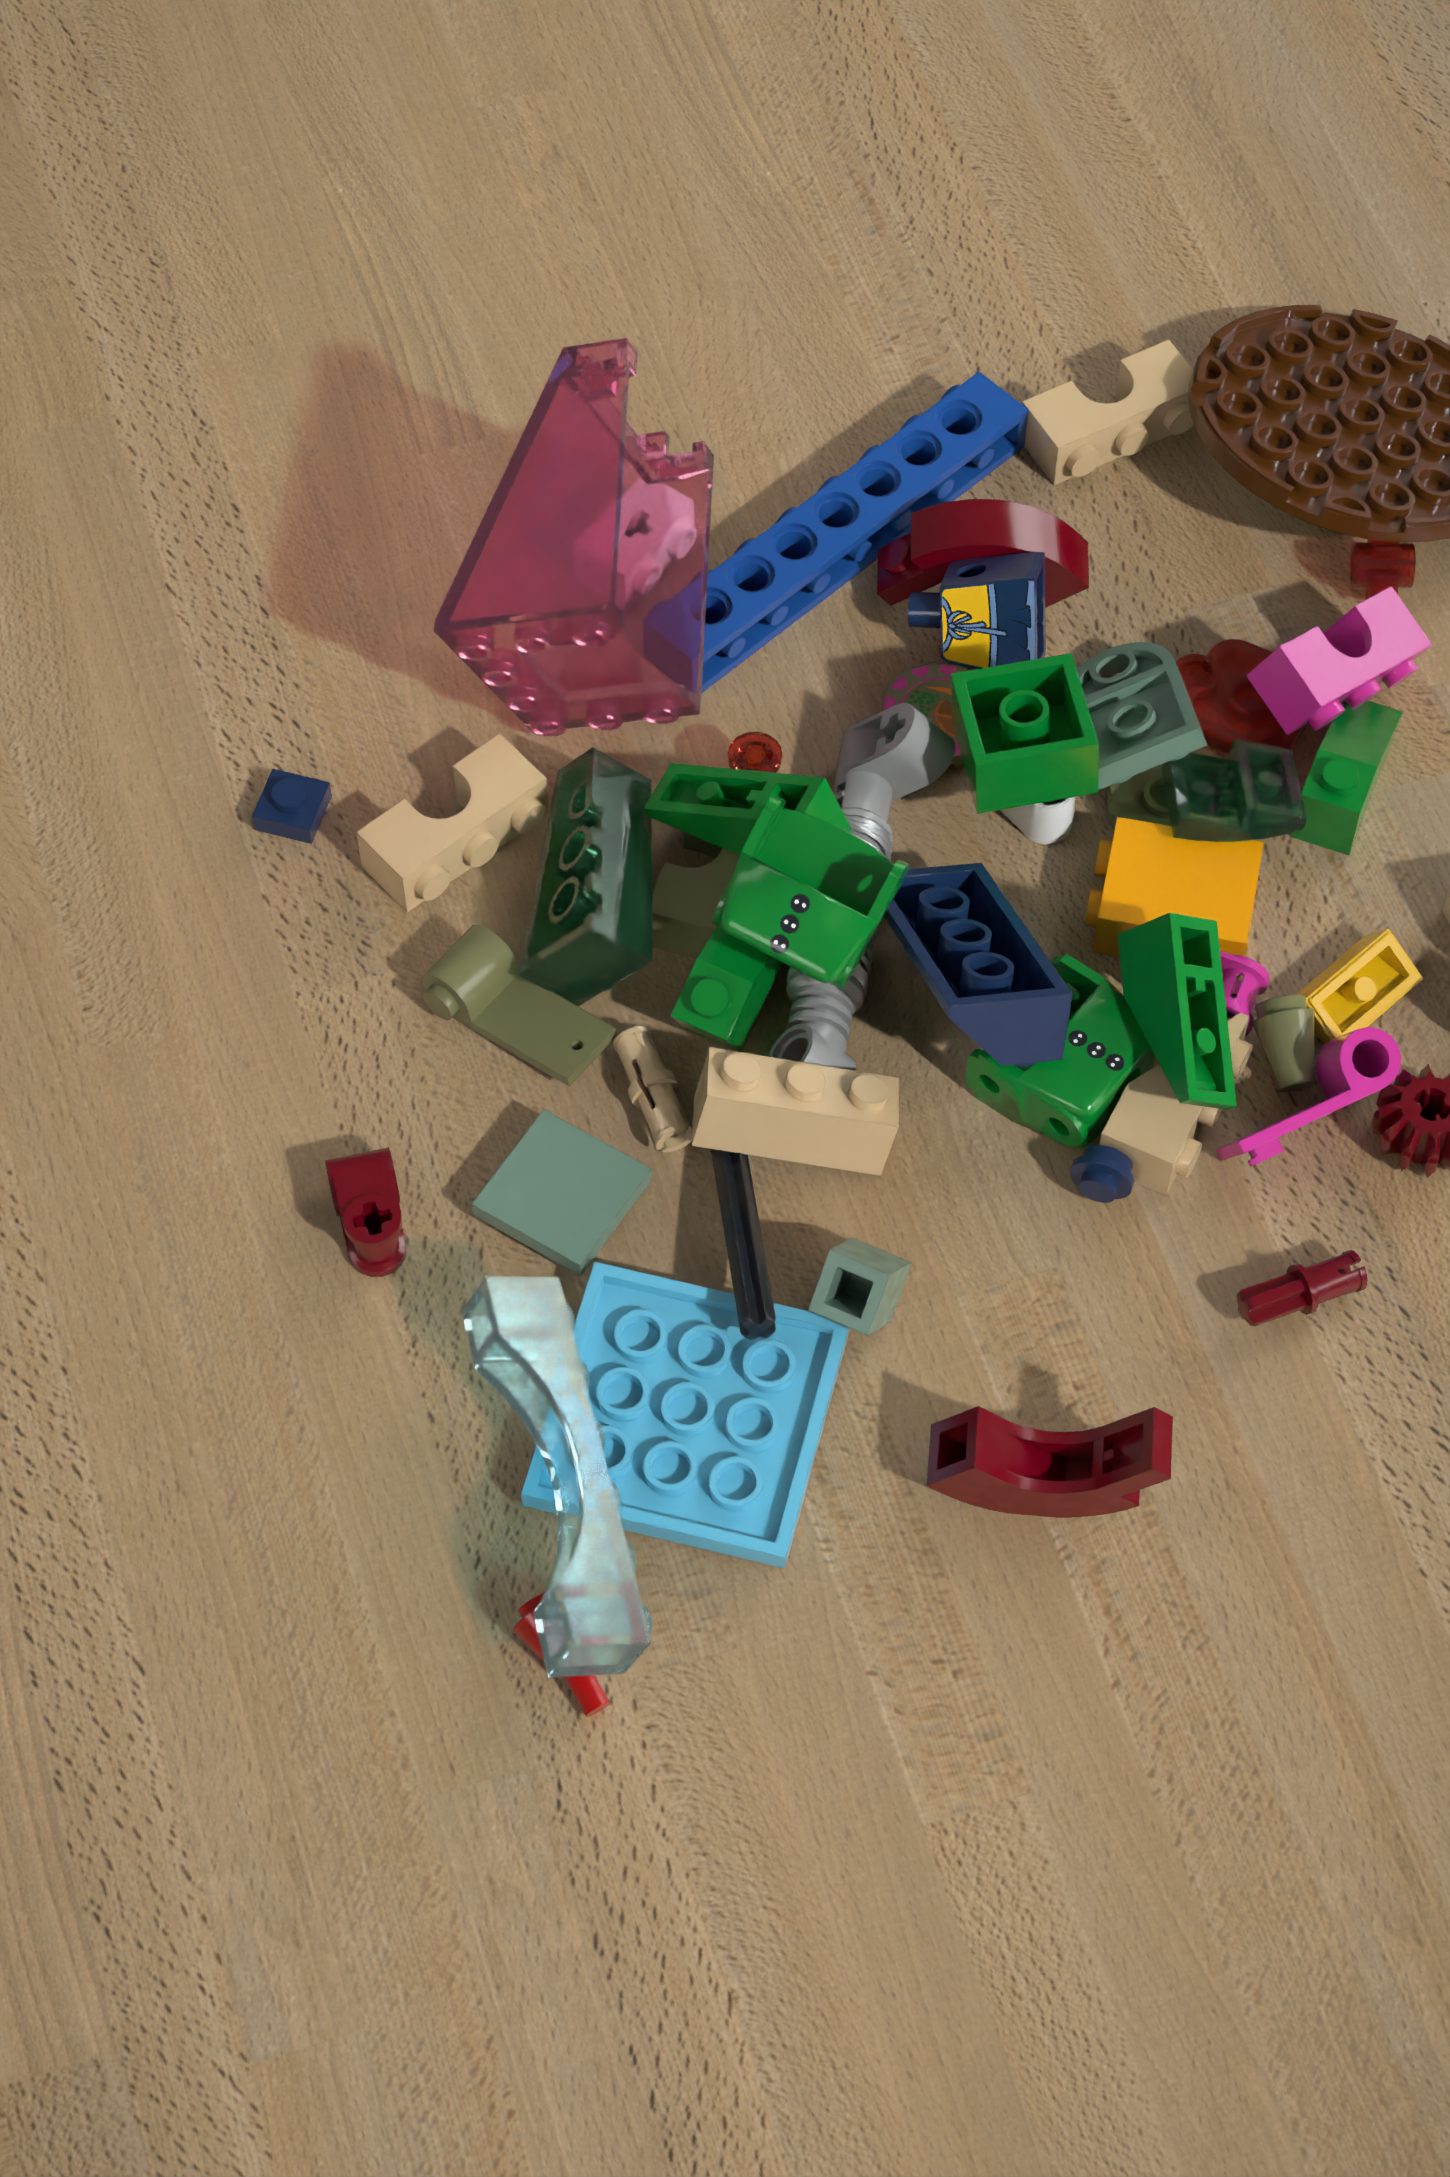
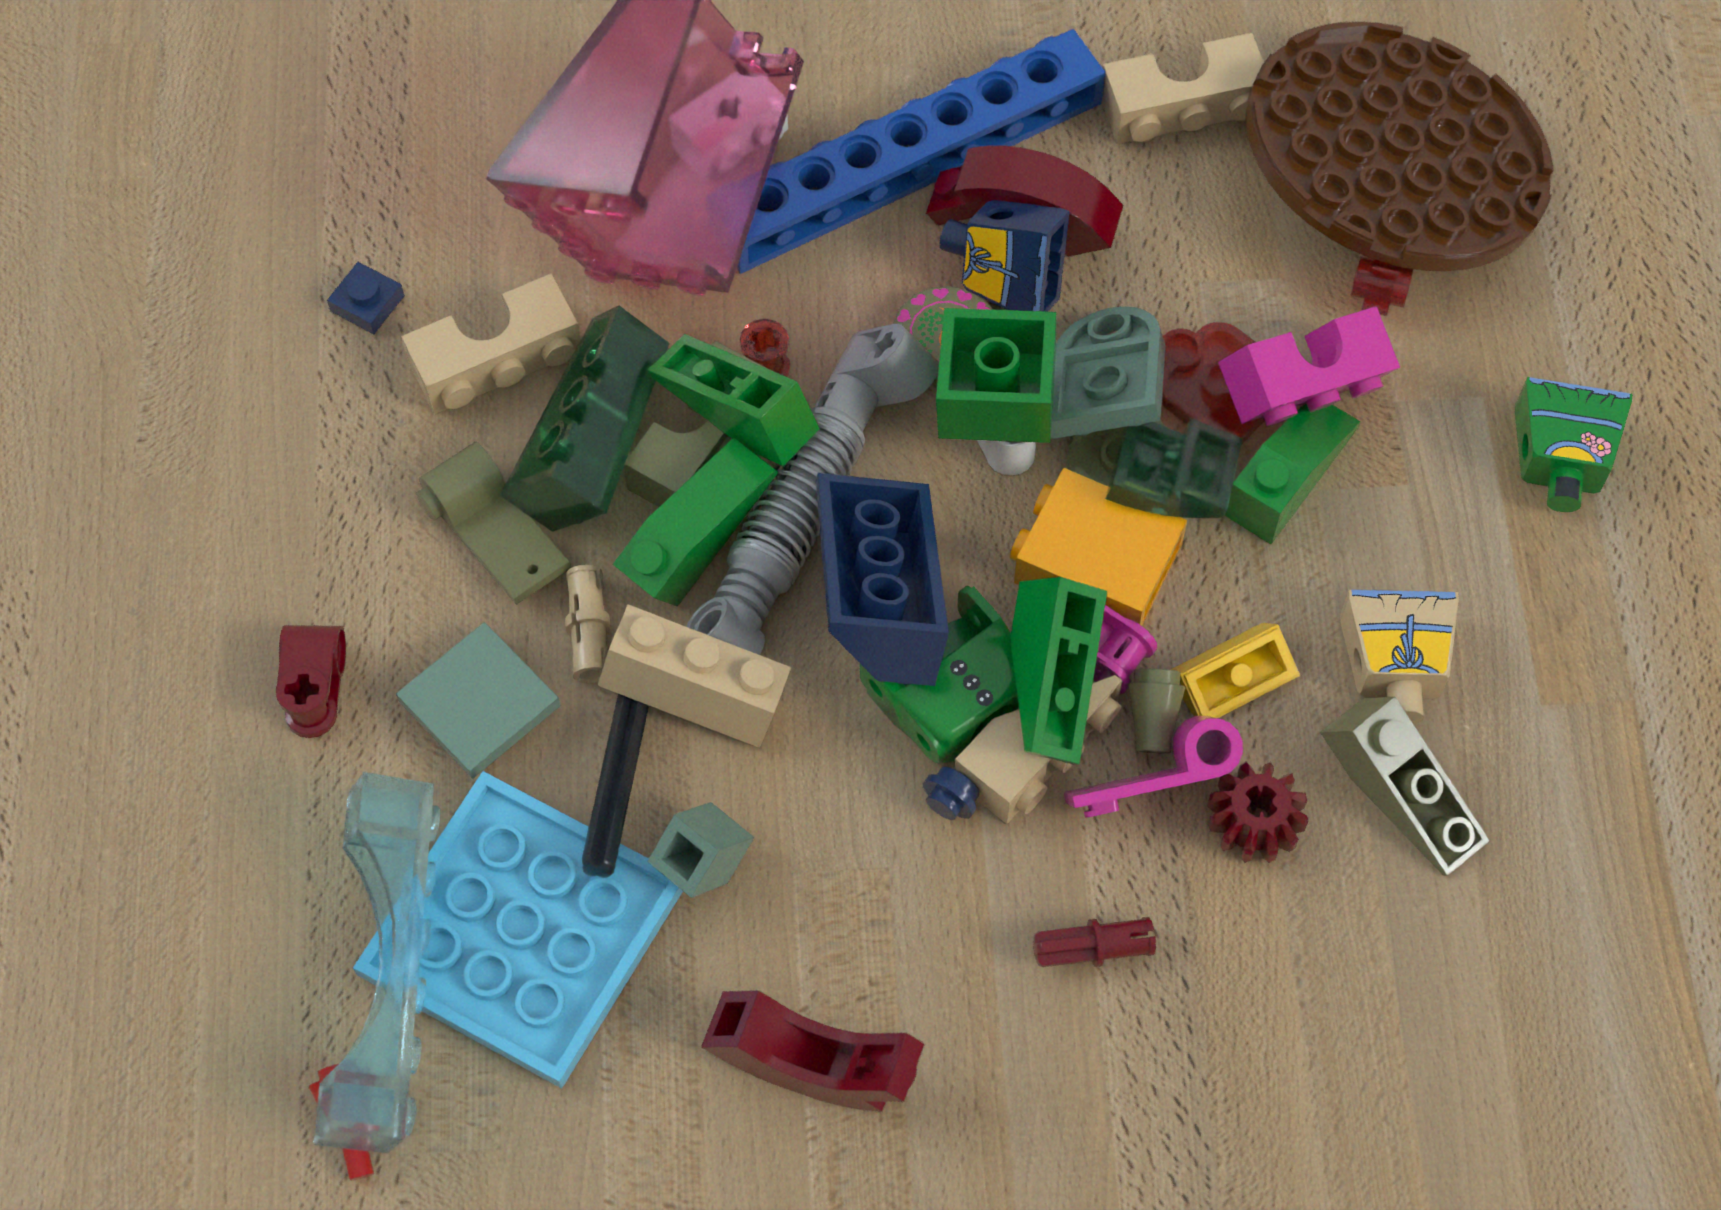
camera: 15 degrees right, 5 degrees up
(808, 893) = (749, 484): green piece -> none

